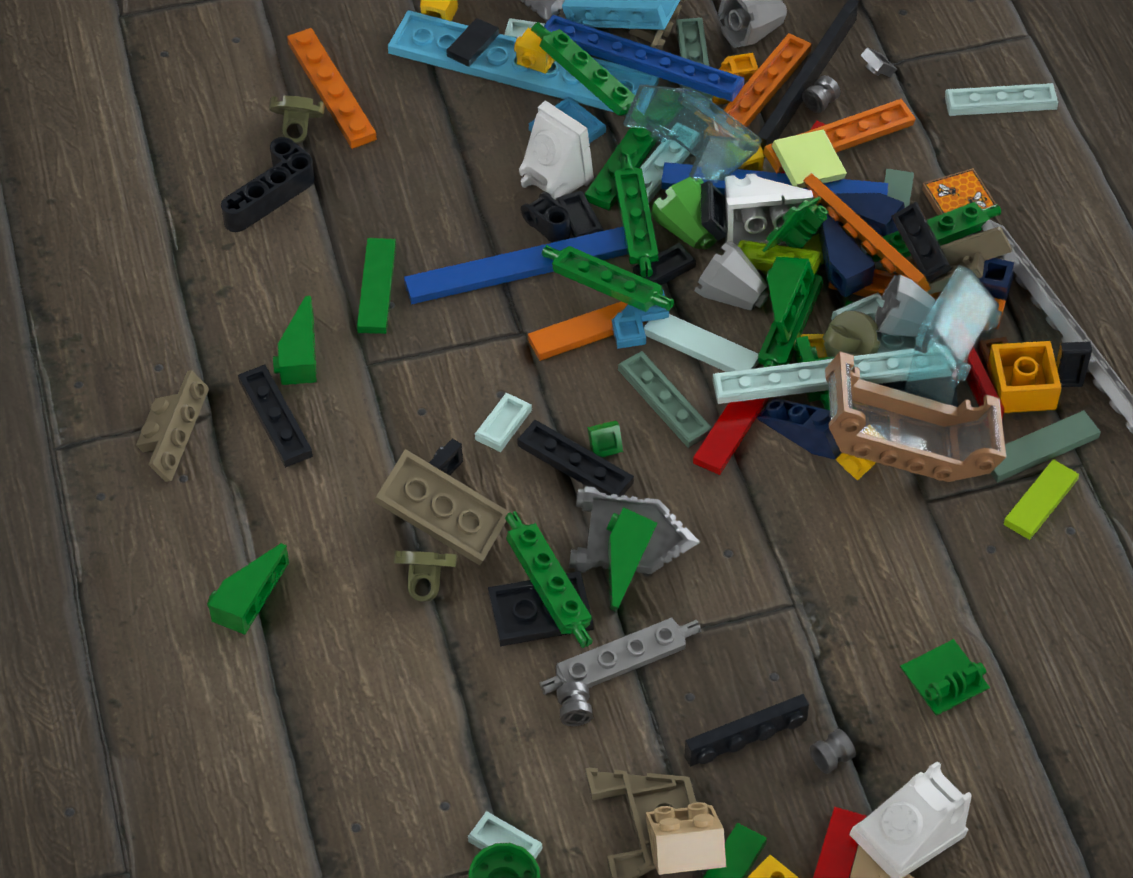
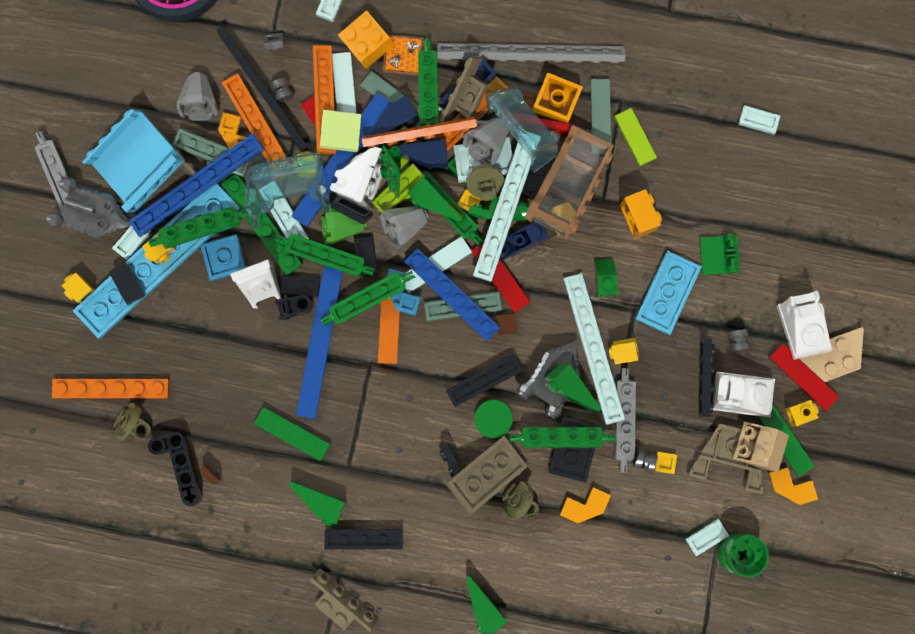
camera: 65 degrees left, 30 degrees up
(274, 220) = (210, 475): none -> reddish brown tile
(470, 671) = (594, 506): none -> light orange tile
(503, 422) = (433, 407): light aqua tile -> none
(529, 494) = (493, 419): none -> green tile
(588, 737) = (666, 463): none -> yellow tile
(605, 439) = (478, 356): green tile -> none
(671, 374) = (452, 295): none -> blue plate
(672, 457) = (506, 323): none -> reddish brown tile
(699, 570) = (594, 349): none -> light aqua tile
(722, 605) = (624, 351): none -> yellow brick
(752, 785) = (743, 394): none -> white piece
(810, 544) = (605, 278): none -> green slope
(844, 635) = (668, 292): none -> medium azure tile
(880, 153) = (344, 82): none -> light aqua tile
(921, 242) = (442, 103): black tile -> none
(932, 537) = (640, 214): none -> light orange brick
(948, 144) = (366, 39): none -> light orange brick
(1073, 363) = (565, 68): black tile -> none

